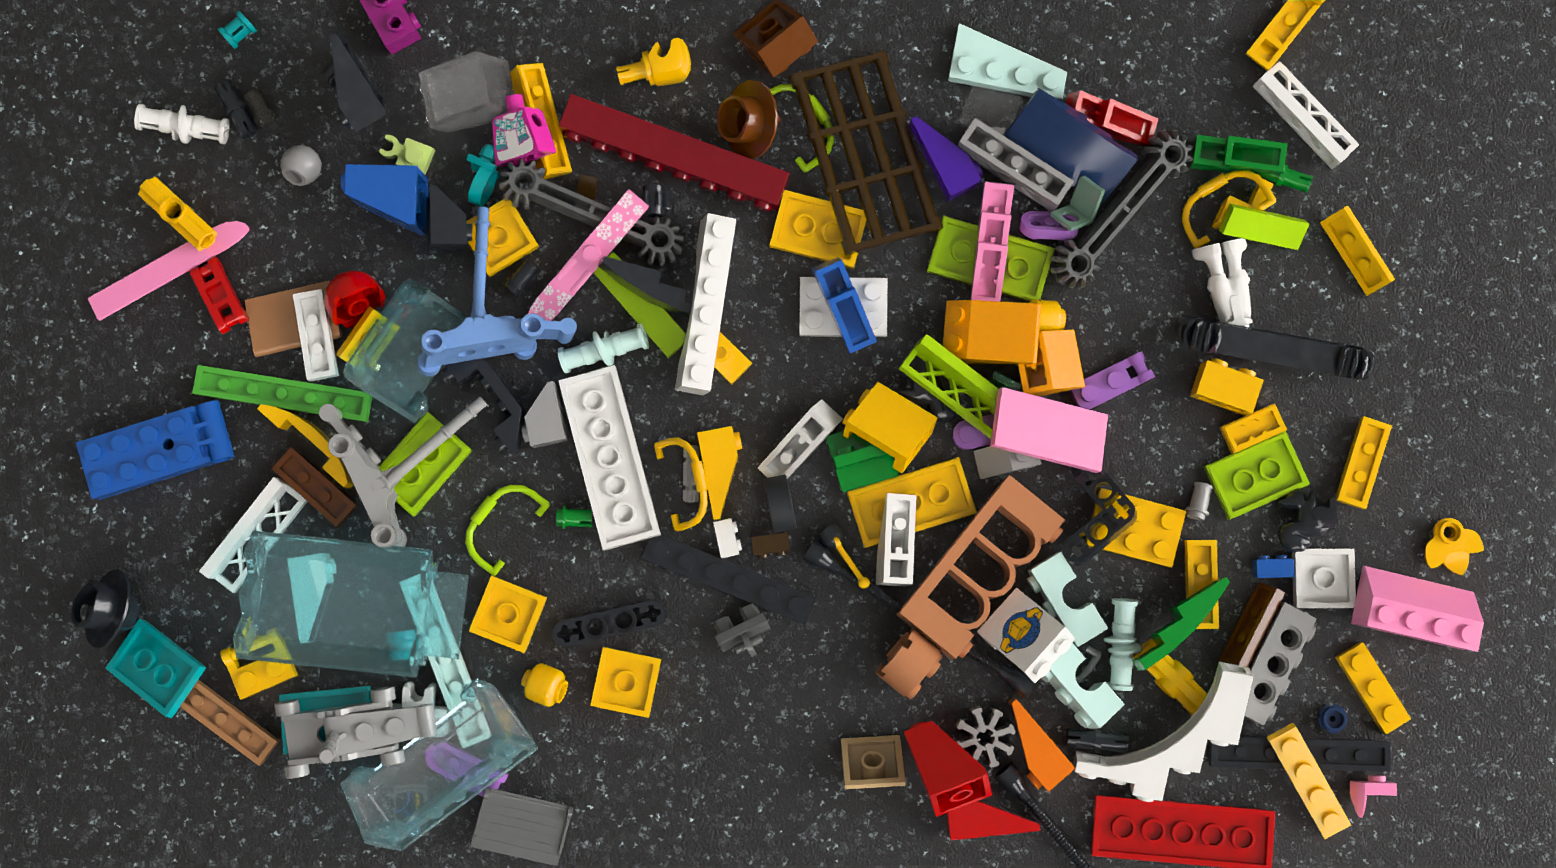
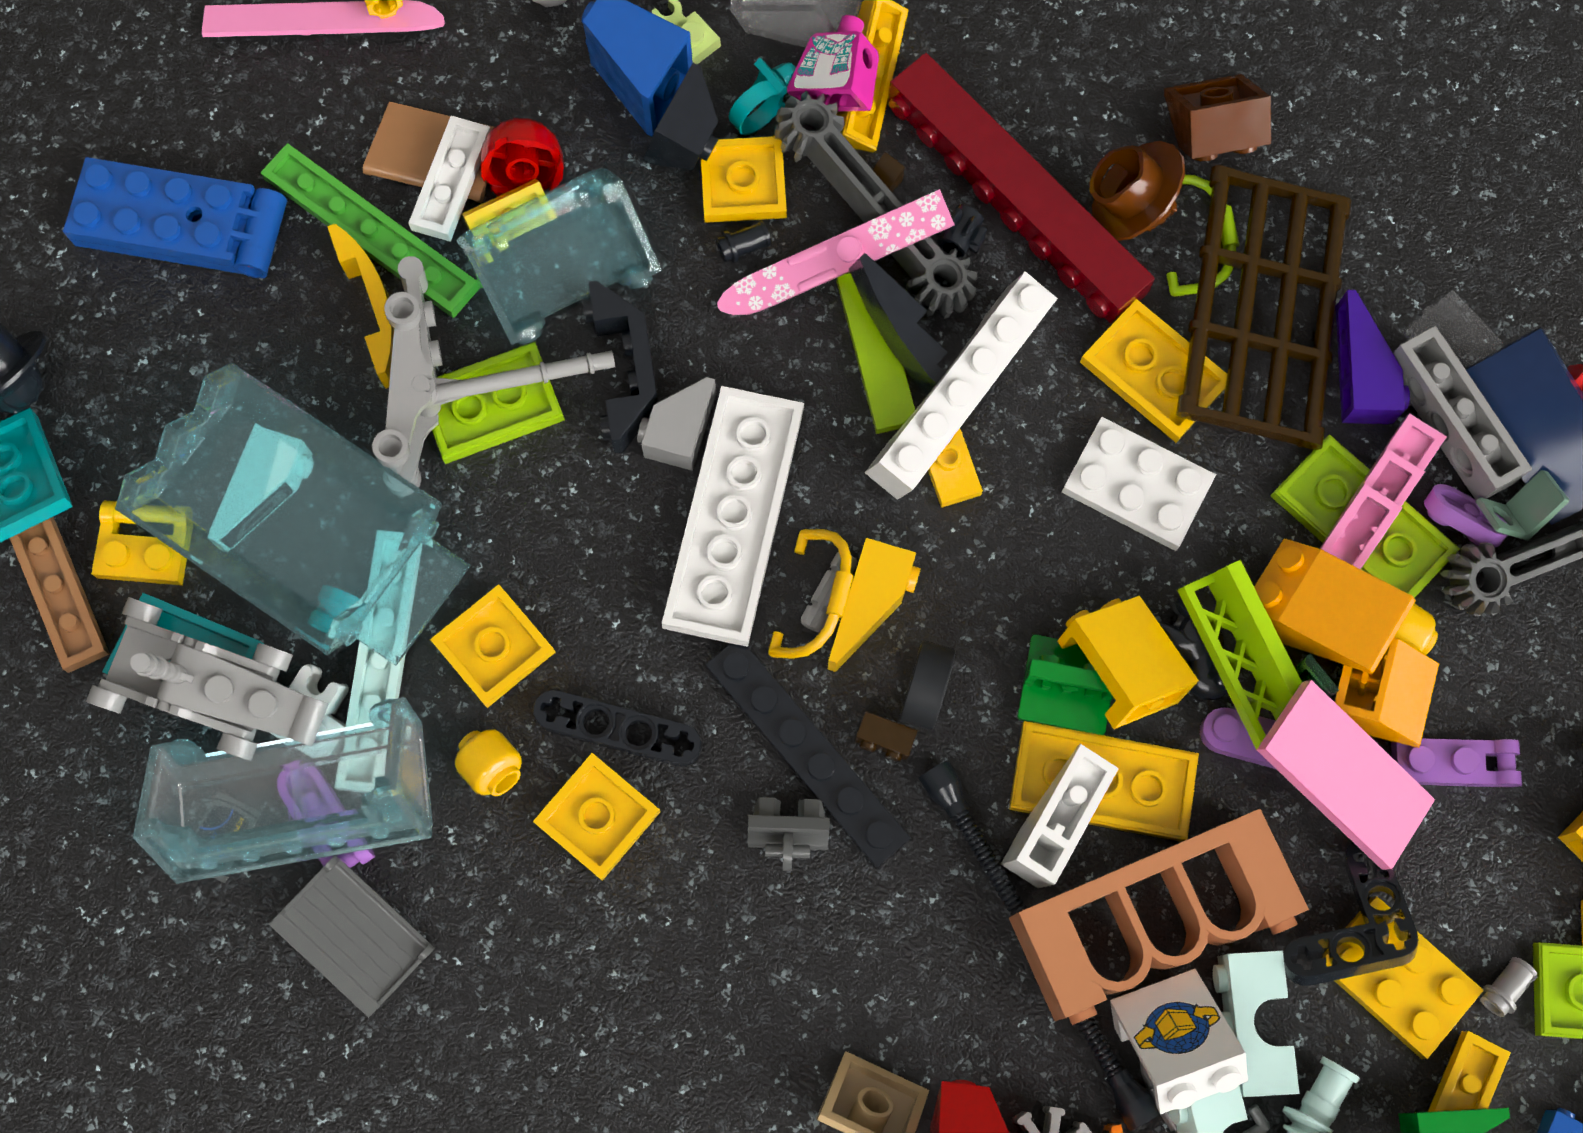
camera: 25 degrees right, 10 degrees down
(218, 295) = (361, 78): red plate -> none
(246, 525) = (249, 354): white fence -> none
(314, 487) = (342, 361): reddish brown plate -> none
(484, 334) = (663, 276): medium blue piece -> none
(485, 508) = (539, 499): lime piece -> none
(574, 517) = (646, 568): green pin -> none
(603, 348) = (800, 375): light aqua piece -> none
(657, 69) = (1051, 80): yellow piece -> none
(726, 538) = (830, 701): white piece -> none
(801, 441) = (999, 621): white slope -> none
(832, 538) = (974, 770): hinge -> none
(844, 304) = (1144, 475): blue slope -> none
(909, 663) = (994, 993): nougat brick -> none
(995, 462) = (1259, 785): light grey slope -> none
(997, 66) = (1490, 288): light aqua wing -> none

